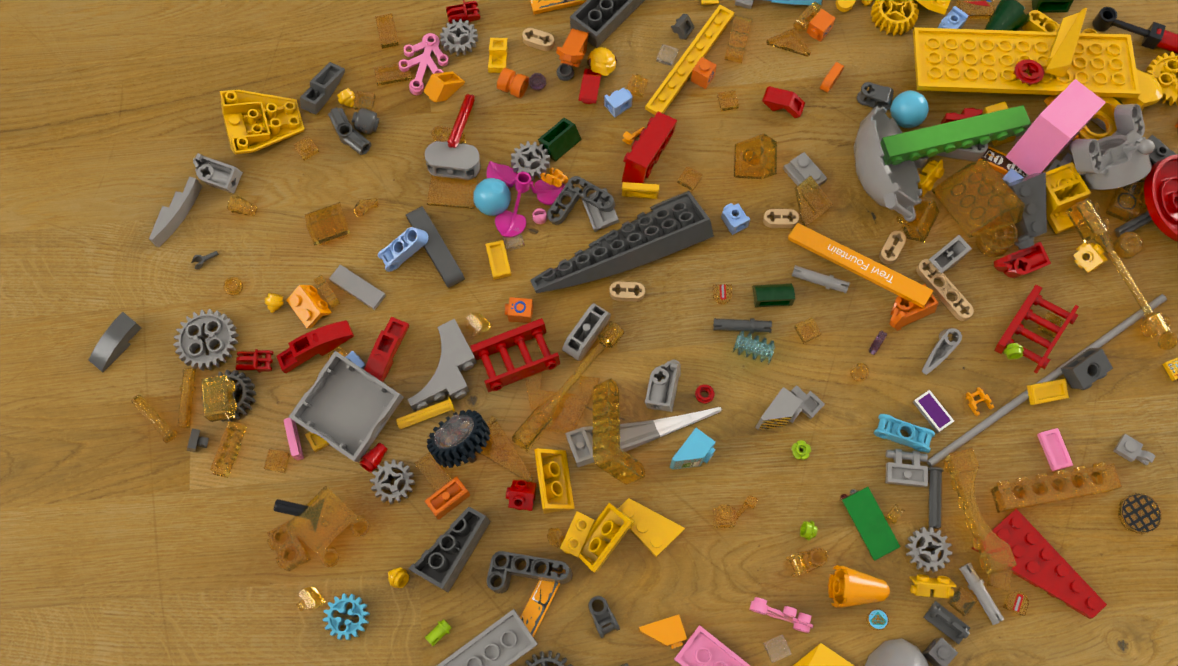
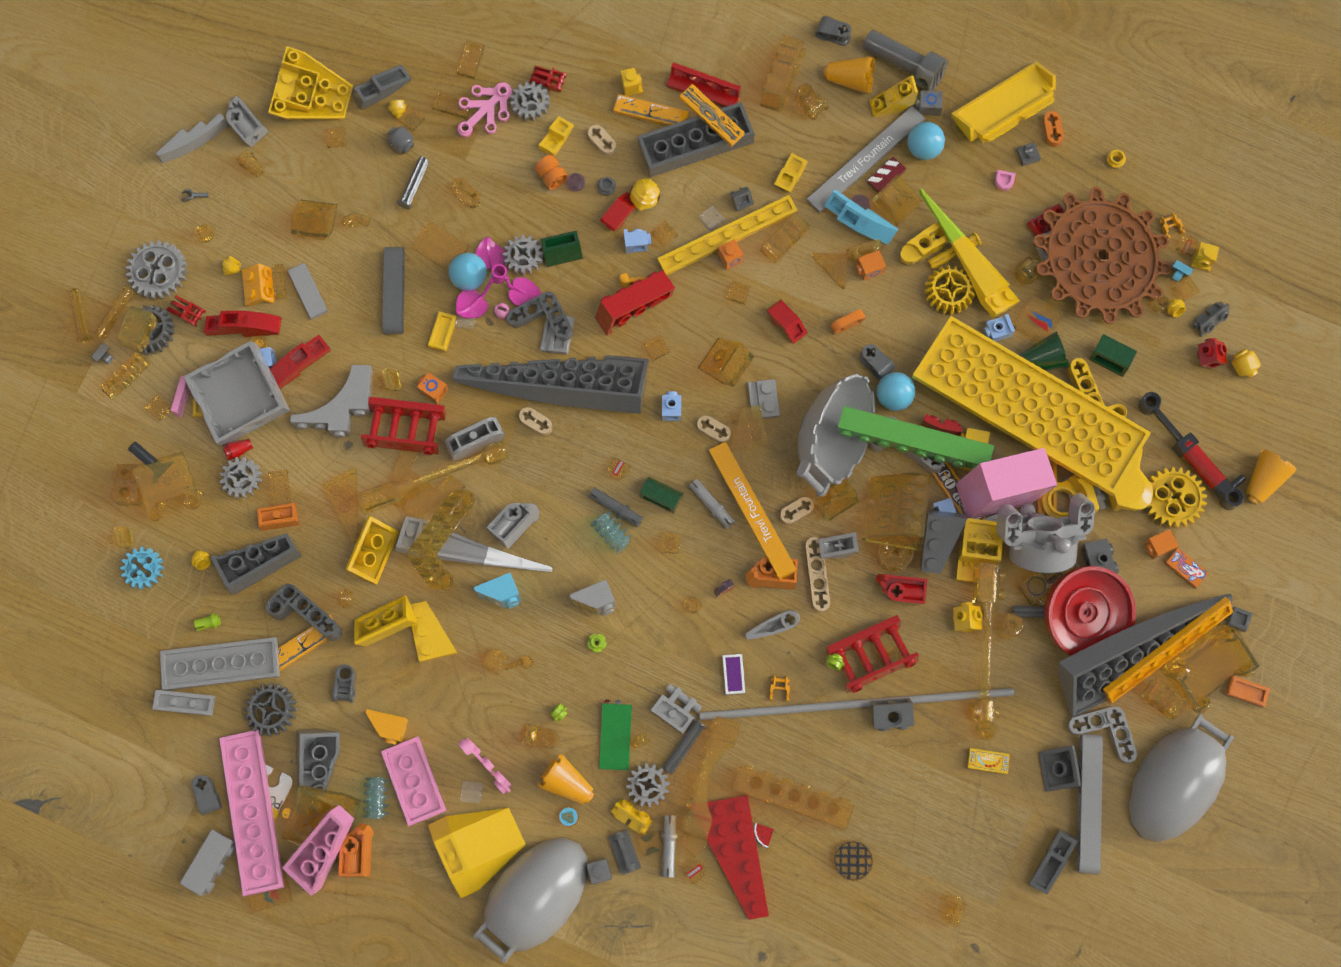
camera: 30 degrees right, 5 degrees up
(114, 341) = (81, 230): dark grey slope -> none
(353, 138) = (378, 129): dark grey piece -> none
(393, 254) = (364, 277): light blue piece -> none
(400, 169) = (413, 183): none -> axle
(425, 413) = (301, 435): yellow axle -> none
(443, 86) = (488, 141): light orange slope -> none
(452, 162) = (454, 218): light grey brick -> none
(458, 439) = (312, 472): black wheel -> none
(461, 120) = (483, 184): red axle -> none
(521, 495) = (338, 548): red brick -> none
(555, 178) = (531, 285): light orange piece -> none
(573, 48) = (623, 169): orange piece -> none
(576, 534) = (363, 606): yellow hinge -> none
(640, 190) = (603, 335): yellow tile -> none
(704, 388) = (545, 542): red plate -> none
(811, 403) = (628, 606): light grey plate -> none
(918, 437) = (684, 667): medium azure piece -> none
(933, 171) = (882, 462): yellow hinge -> none
(1025, 241) = (912, 571): dark grey plate -> none
(1034, 69) = (1019, 409): red gear -> none
(1047, 391) = (845, 714): yellow tile -> none
(1052, 535) = (763, 834): none -> red tile
(1055, 449) = (818, 766): bright pink tile -> none
(1065, 44) = (1077, 408): yellow wedge -> none
(1131, 450) = (884, 803): light grey plate -> none

